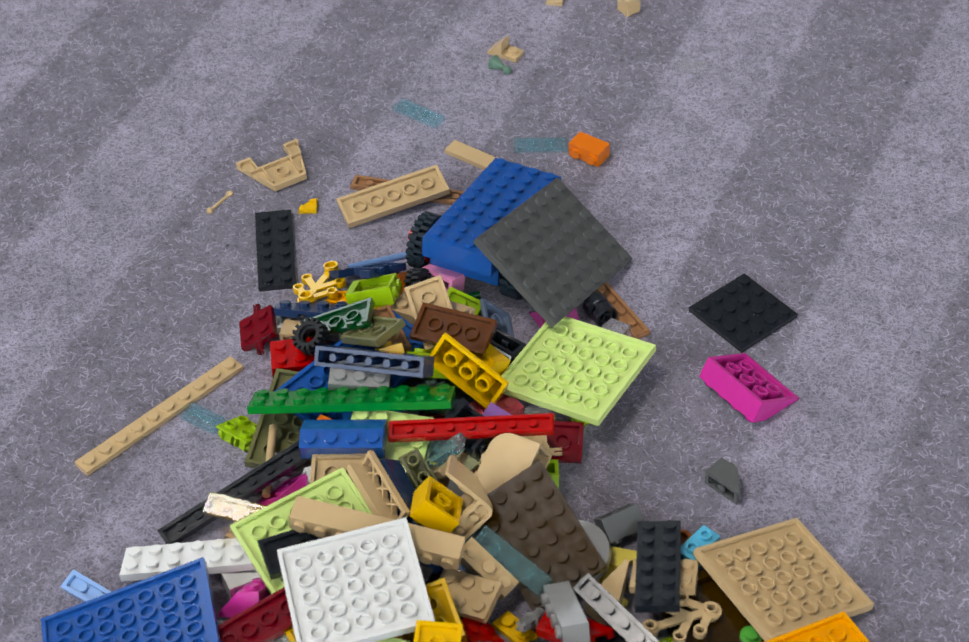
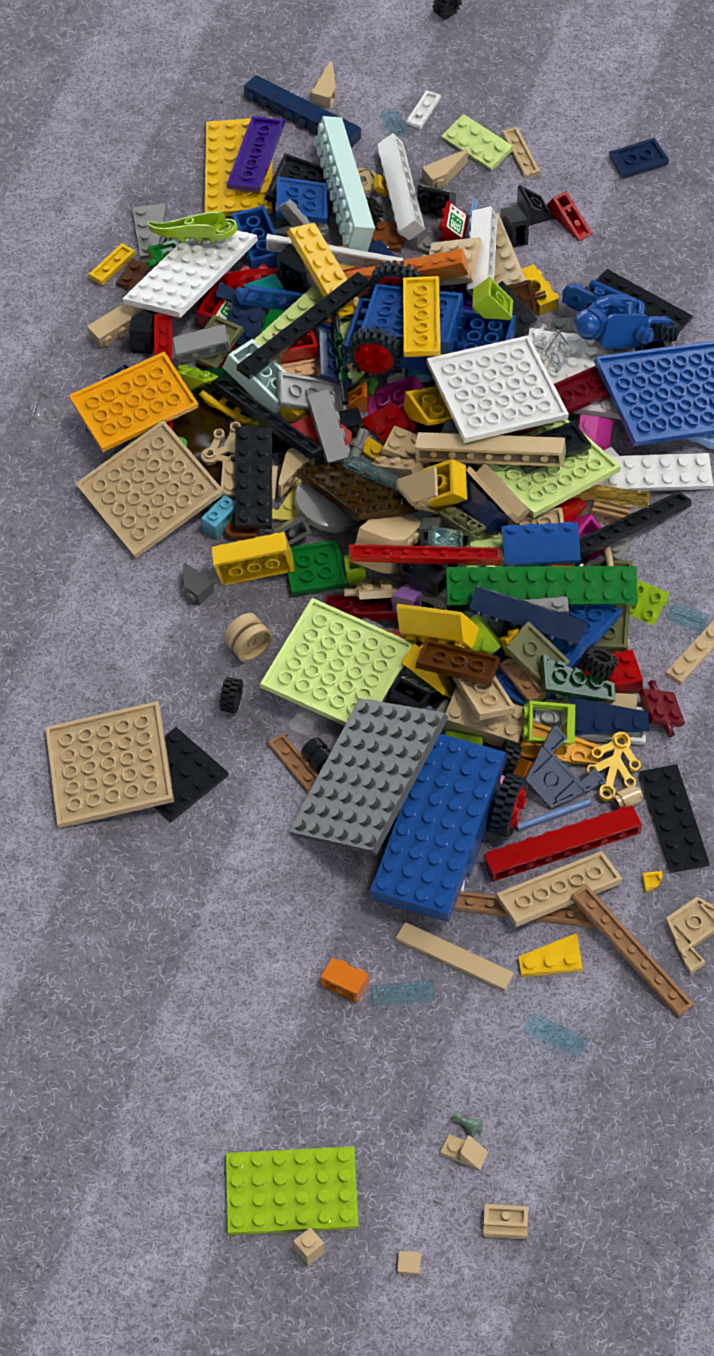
camera: 175 degrees right, 10 degrees up
(312, 262) = (626, 797): none -> tan brick
(343, 153) = (632, 951): none -> medium nougat tile
(365, 233) = (562, 843): none -> red brick
(406, 159) = (554, 958): none -> yellow wing
(480, 13) = (505, 1221): none -> tan plate
(592, 489) = (317, 568): none -> green plate
(640, 38) = (291, 1190): none -> lime plate
(660, 482) = (253, 558): none -> yellow brick
(667, 409) = (247, 637): none -> tan wheel
(685, 361) = (231, 695): none -> black tyre
(746, 386) = (172, 681): dark pink slope -> none
(806, 313) = (109, 764): none -> tan plate

